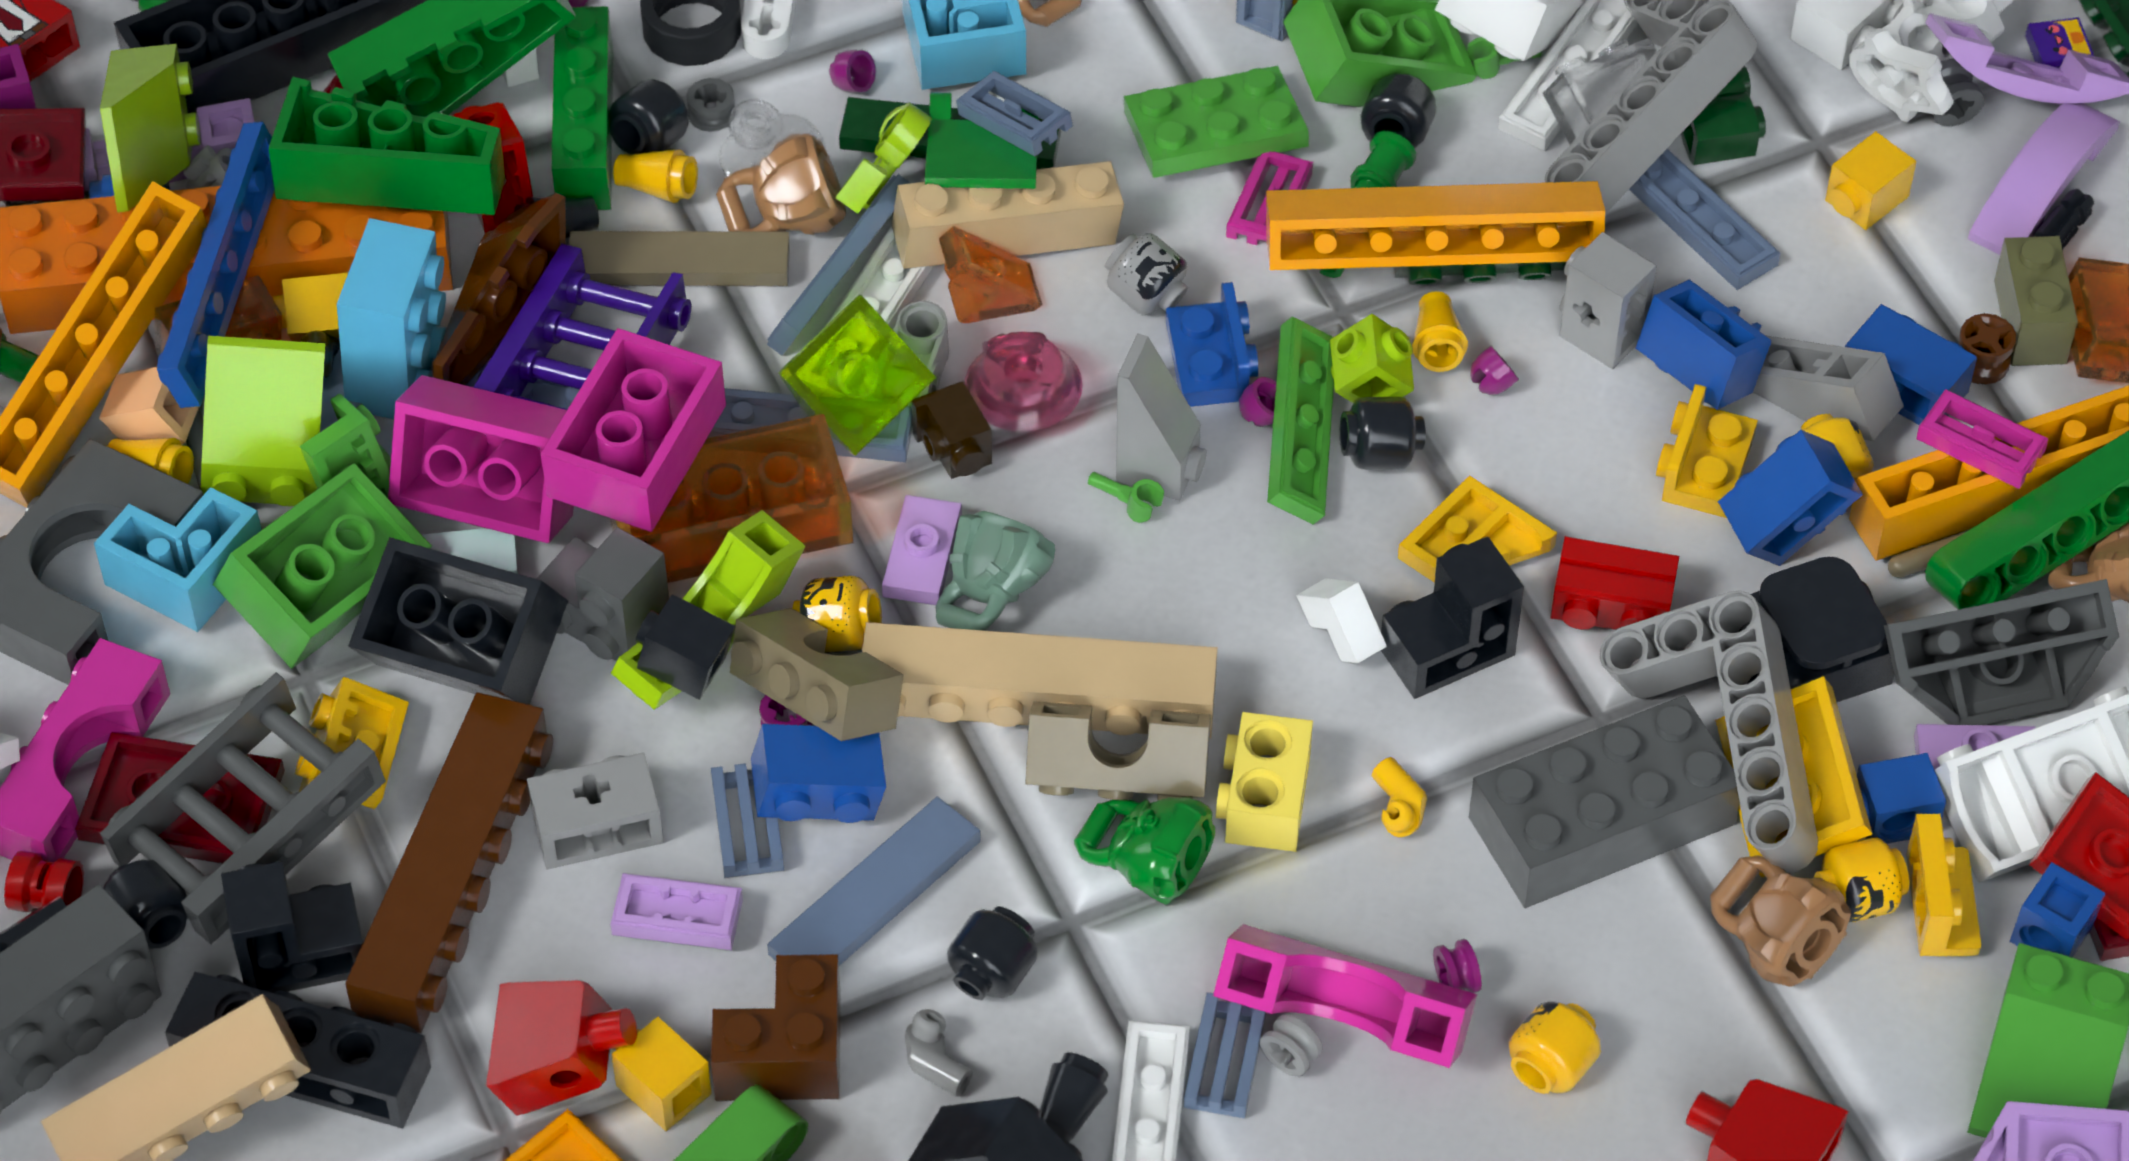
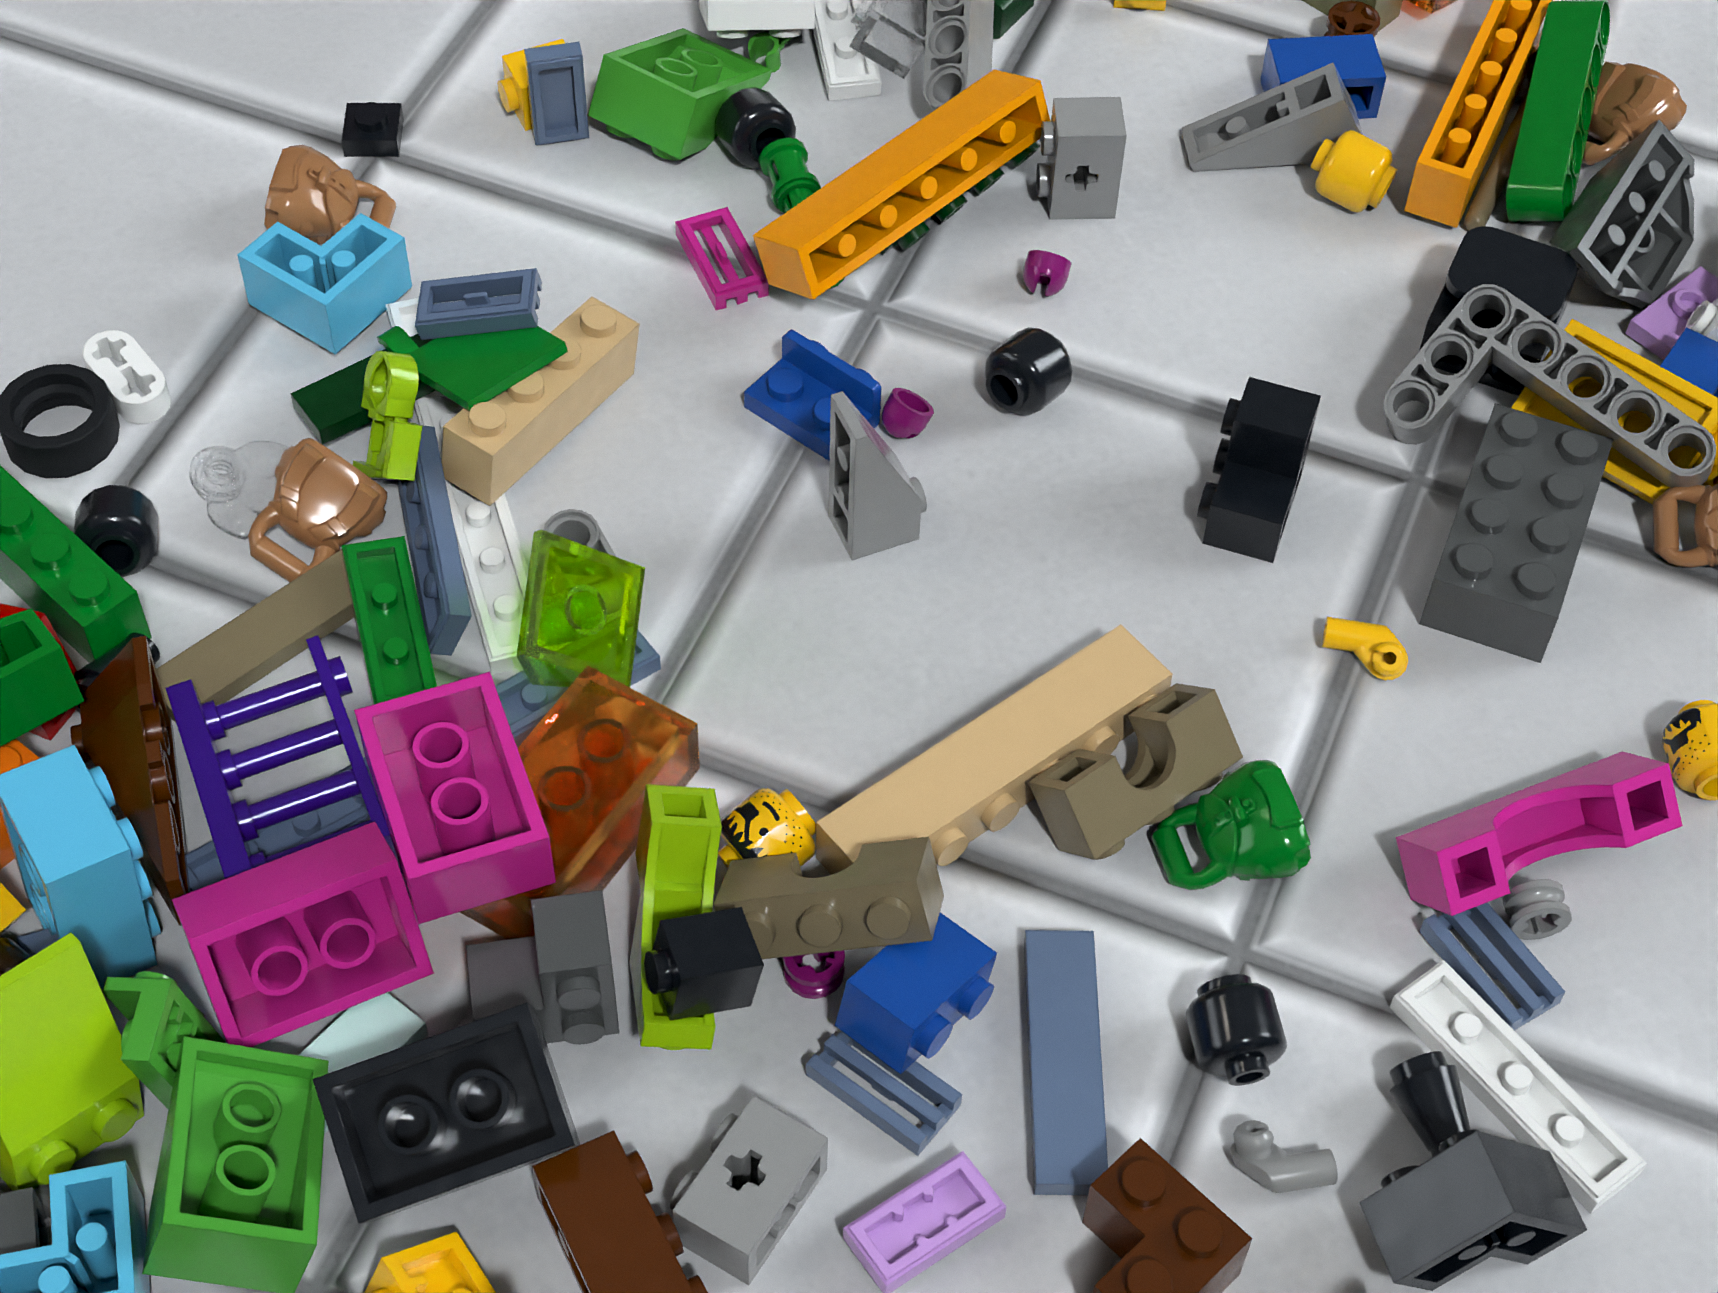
camera: 45 degrees left, 0 degrees up
(660, 174) = (175, 572): yellow cone -> none
(710, 91) = (165, 473): dark grey bush -> none
(755, 303) = (388, 618): none -> green tile
(853, 64) = (258, 375): magenta hinge -> none
(921, 550) = (766, 730): lavender plate -> none
(953, 430) = (689, 607): dark brown brick -> none
(986, 279) = (572, 468): clear orange slope -> none
(992, 565) = (853, 694): sand green piece -> none
(1024, 382) = (697, 529): clear pink piece -> none
(1142, 490) = (894, 562): bright green hand -> none
(1146, 273) = (702, 373): light grey head -> none
(1215, 121) = (615, 225): bright green plate -> none
(1266, 781) = (1268, 695): light yellow brick -> none
(1301, 422) = (953, 405): bright green tile -> none
(1346, 616) = (1168, 527): white piece -> none
(1371, 360) = (961, 322): lime brick -> none
(1438, 335) = (976, 271): yellow cone -> none
(1458, 966) = (1572, 743): magenta bush -> none
(1468, 516) = (1178, 403): yellow wing -> none
(1611, 584) = (1334, 360): red brick -> none
(1703, 343) = (1183, 148): blue brick -> none
(1705, 221) = (1067, 70): sand blue tile -> none
(1706, 454) = (1262, 232): yellow bracket -> none
(1790, 497) = (1377, 211): blue brick -> none
(1977, 444) = (1466, 78): dark pink tile -> none

